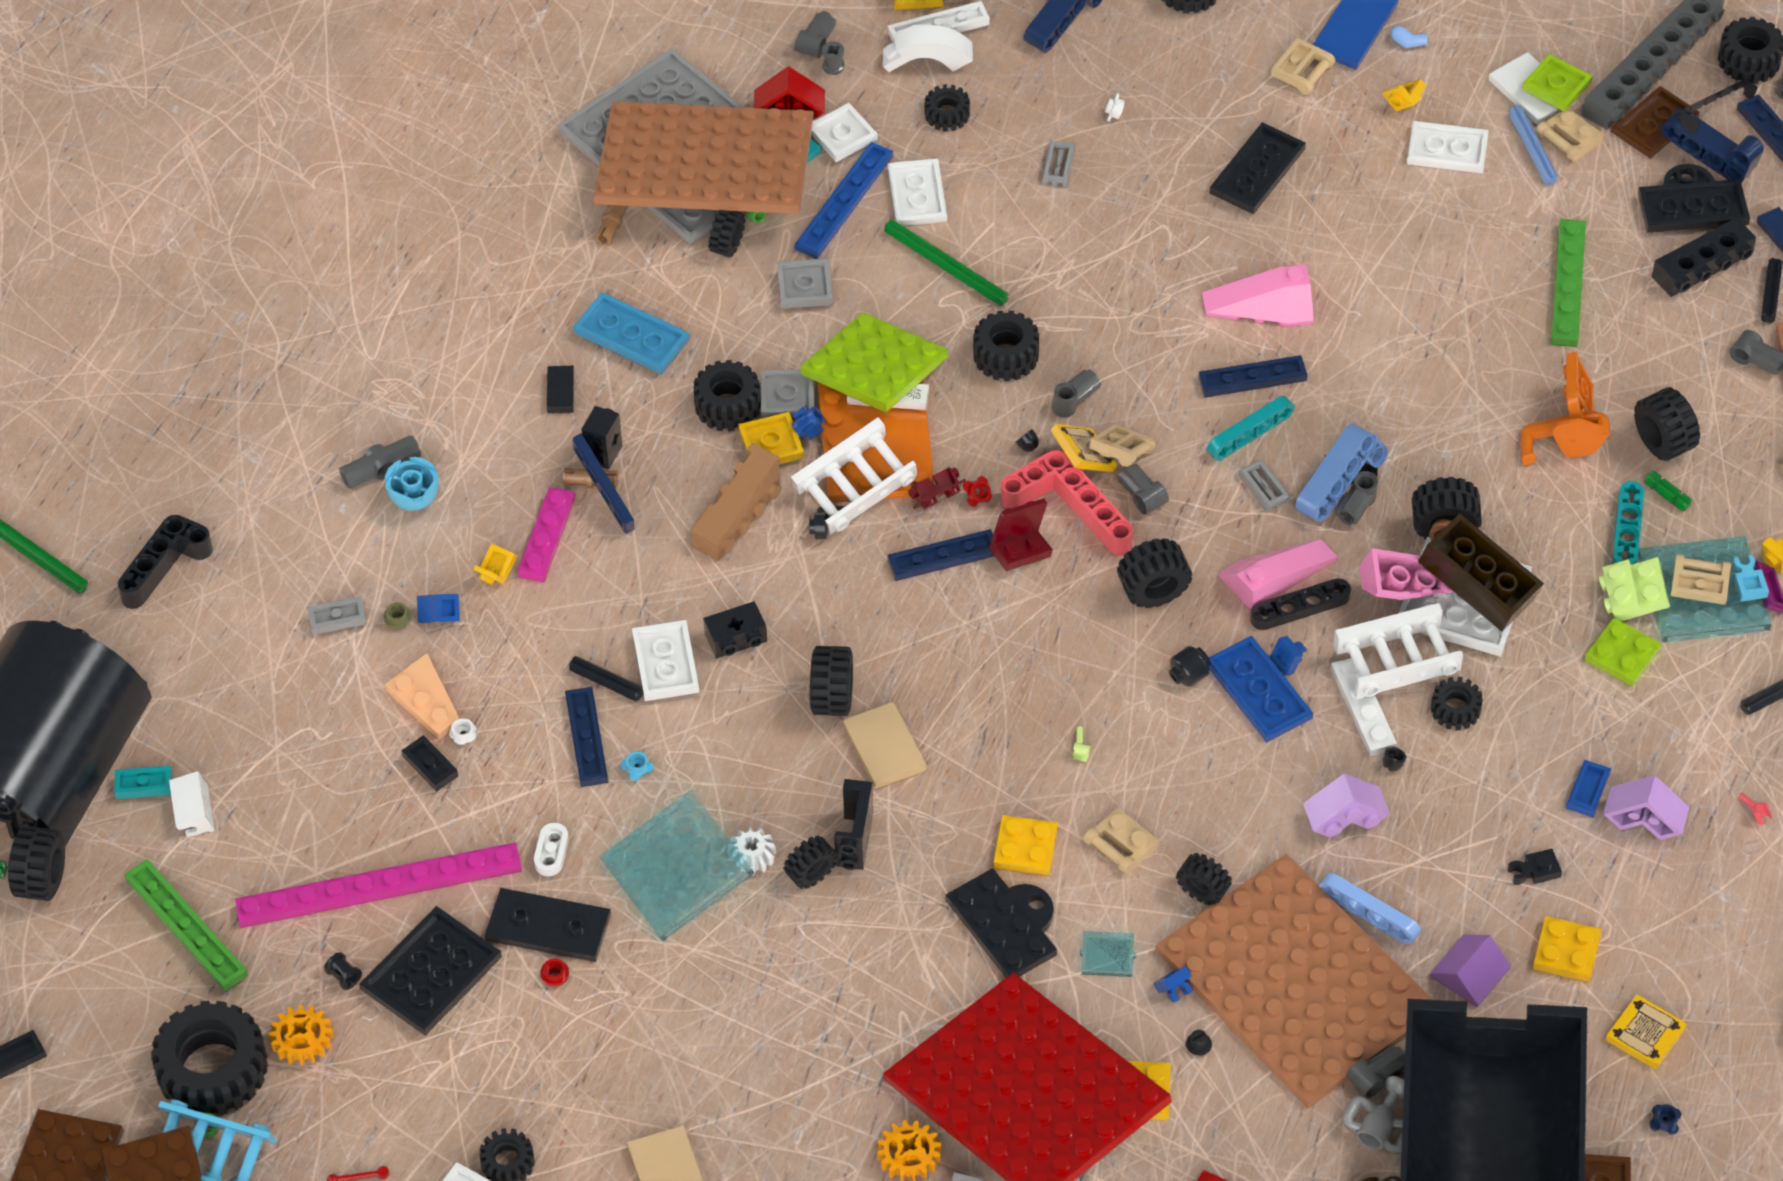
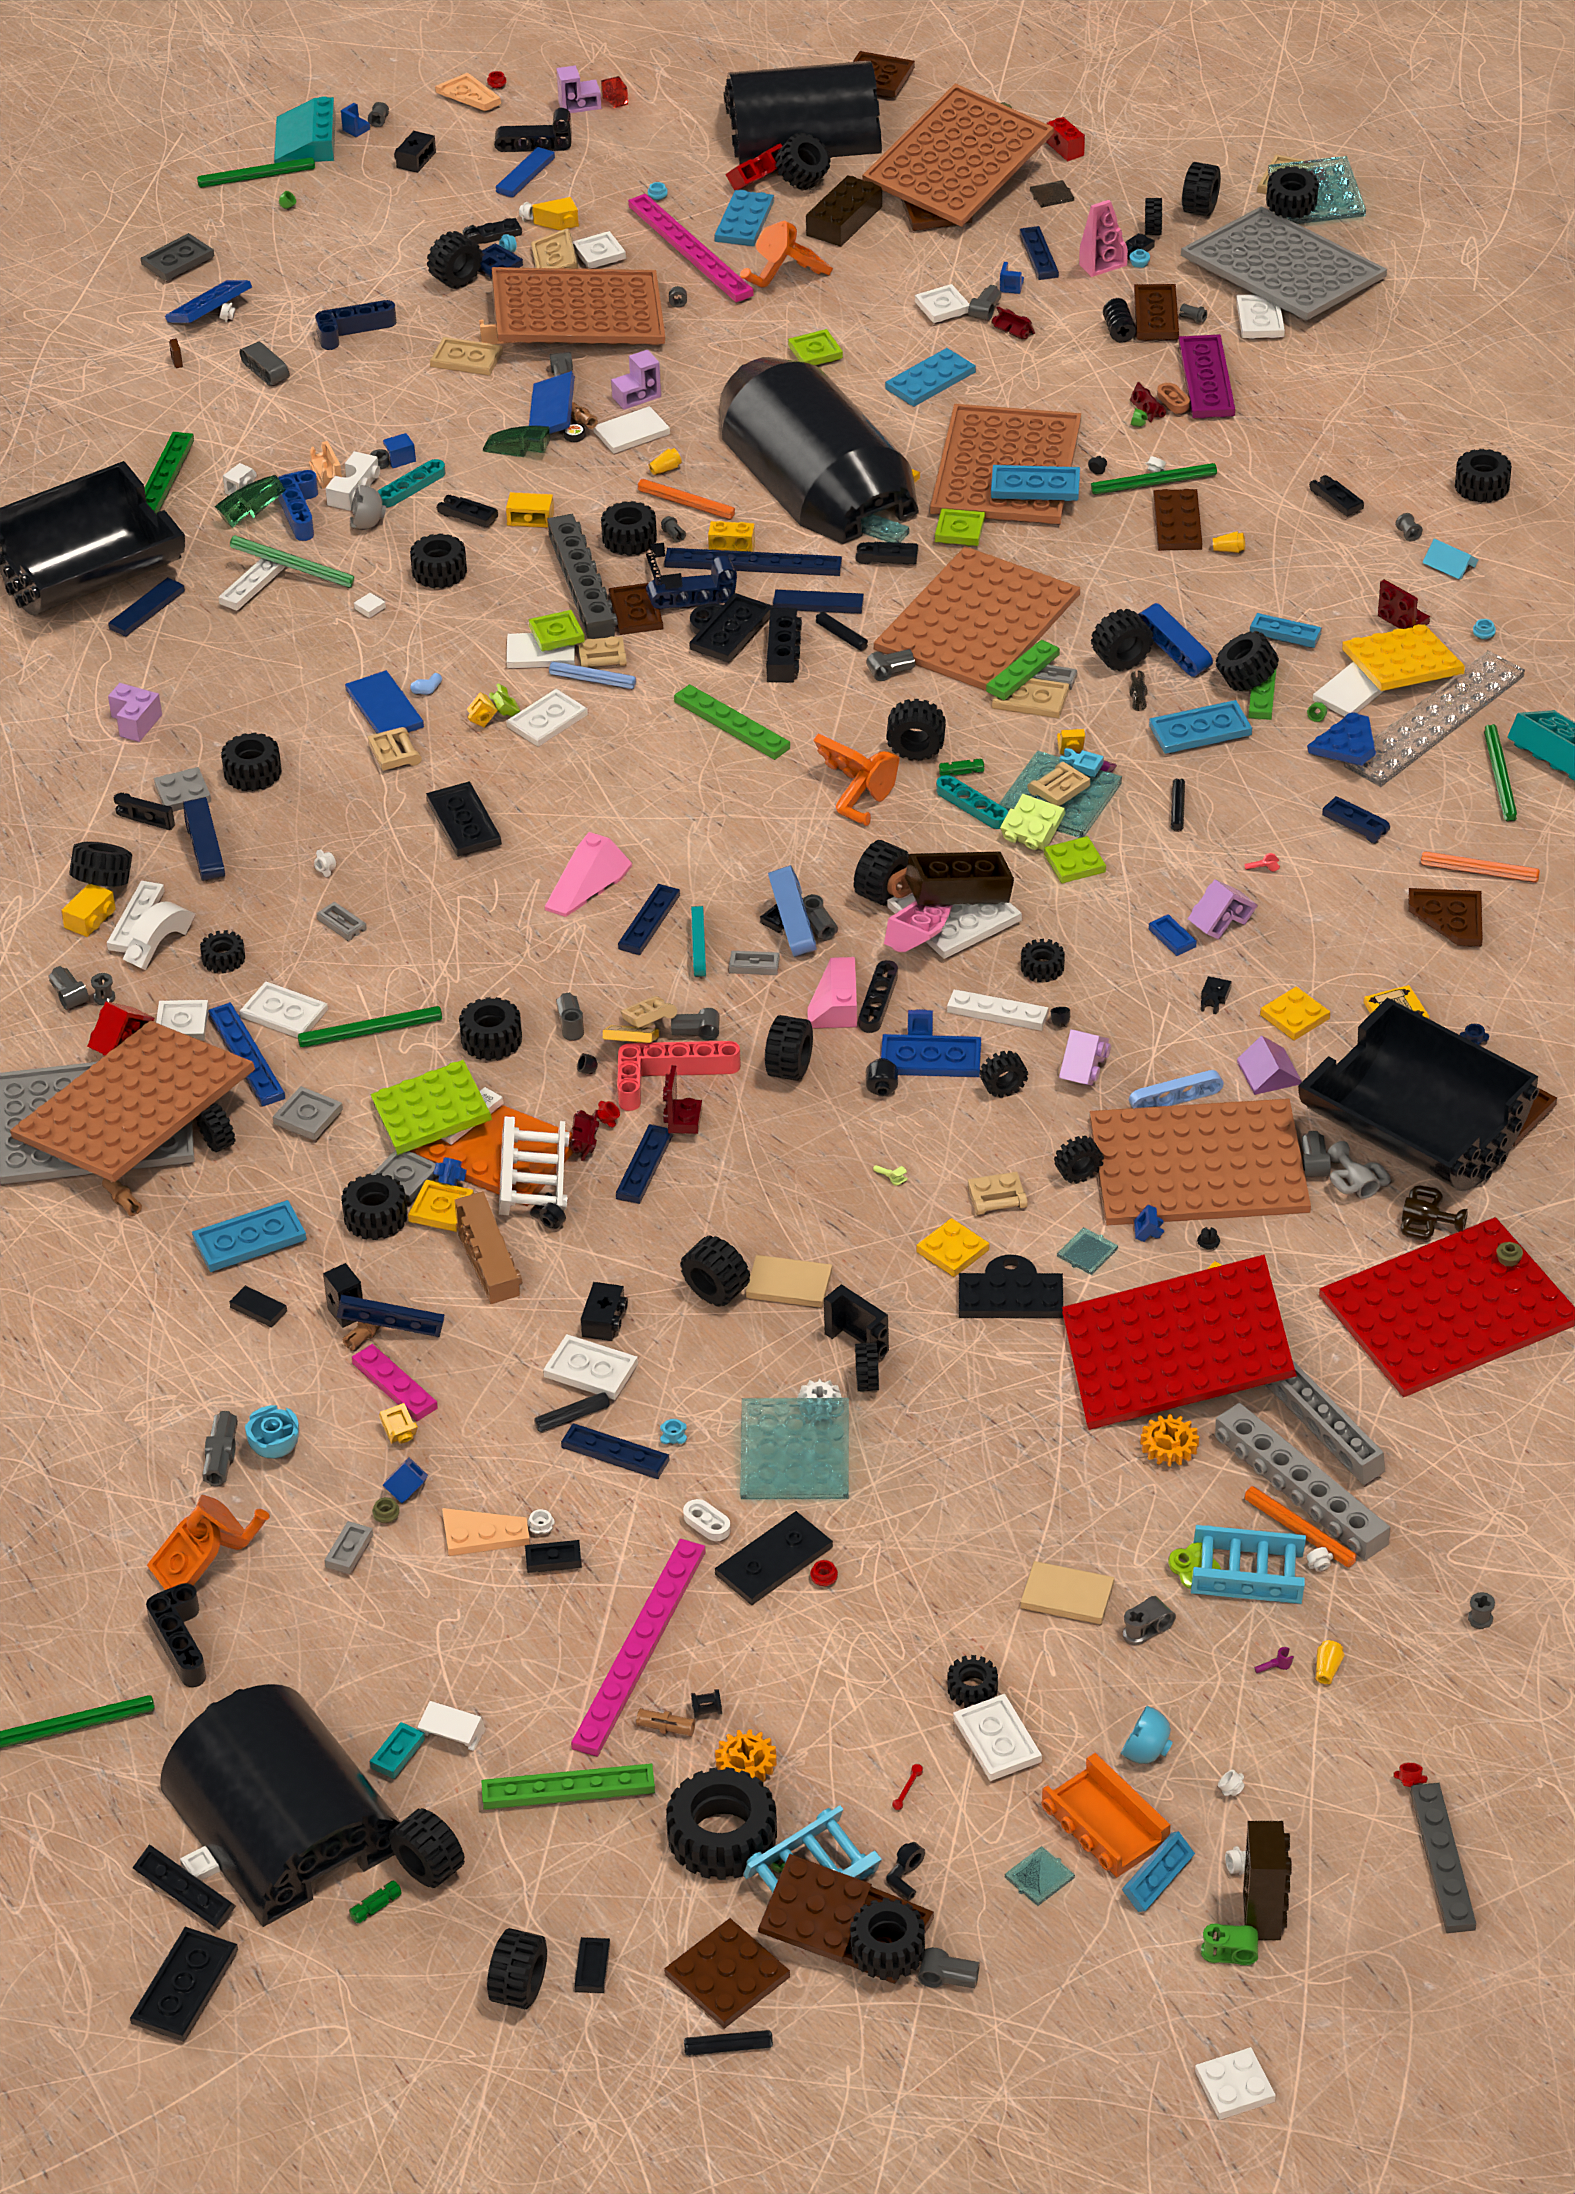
camera: 55 degrees left, 10 degrees down
(261, 501) = (198, 1540): none -> orange plate
(304, 954) = (647, 1719): none -> medium nougat pin
(430, 970) = (755, 1648): black plate -> none
(1267, 757) = (1010, 1081): none -> black tyre
(1394, 627) = (960, 947): white fence -> none
(1433, 105) = (504, 703): none -> lime plate

